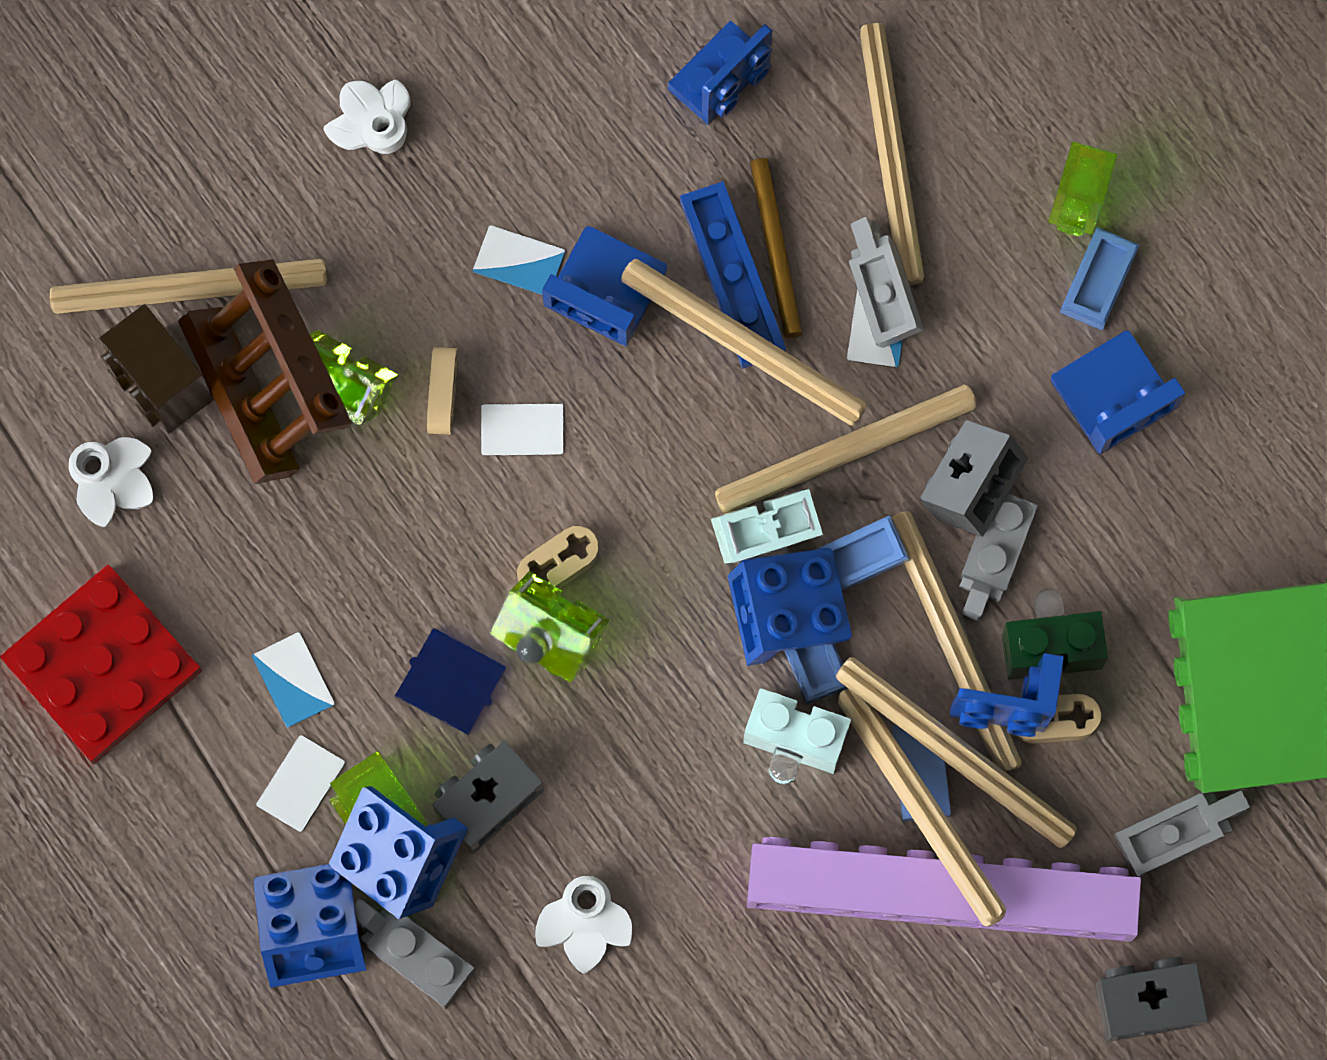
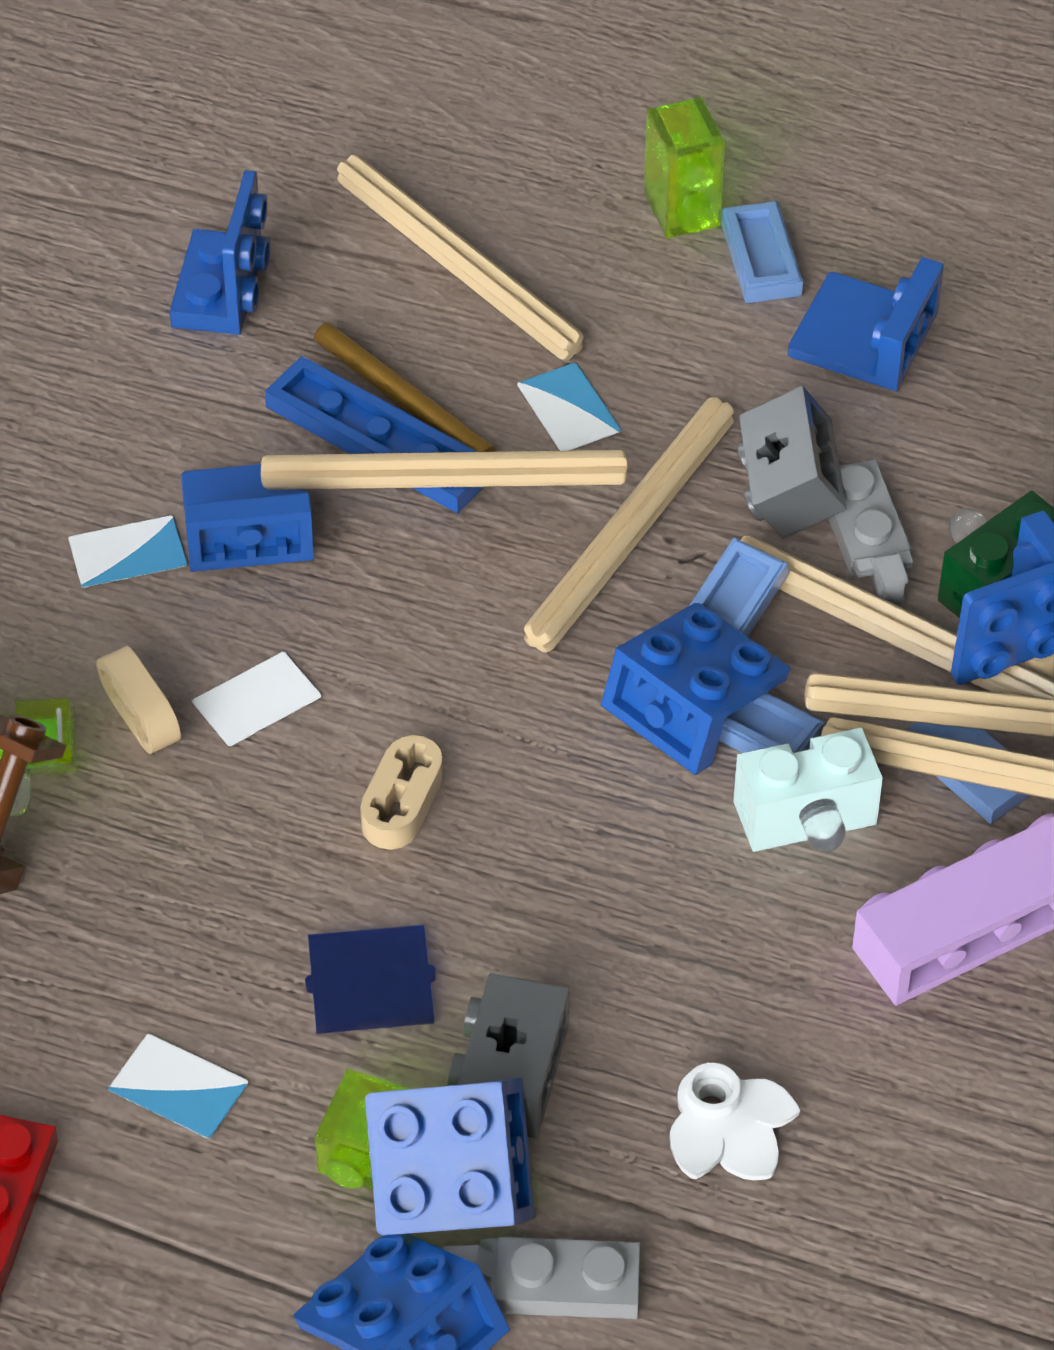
camera: 35 degrees left, 25 degrees down
(300, 783) = (271, 1186): white sticker -> none
(549, 627) = (448, 844): clear neon green piece -> none
(767, 533) = (625, 603): light aqua piece -> none
(883, 285) = (549, 358): light grey hinge -> none

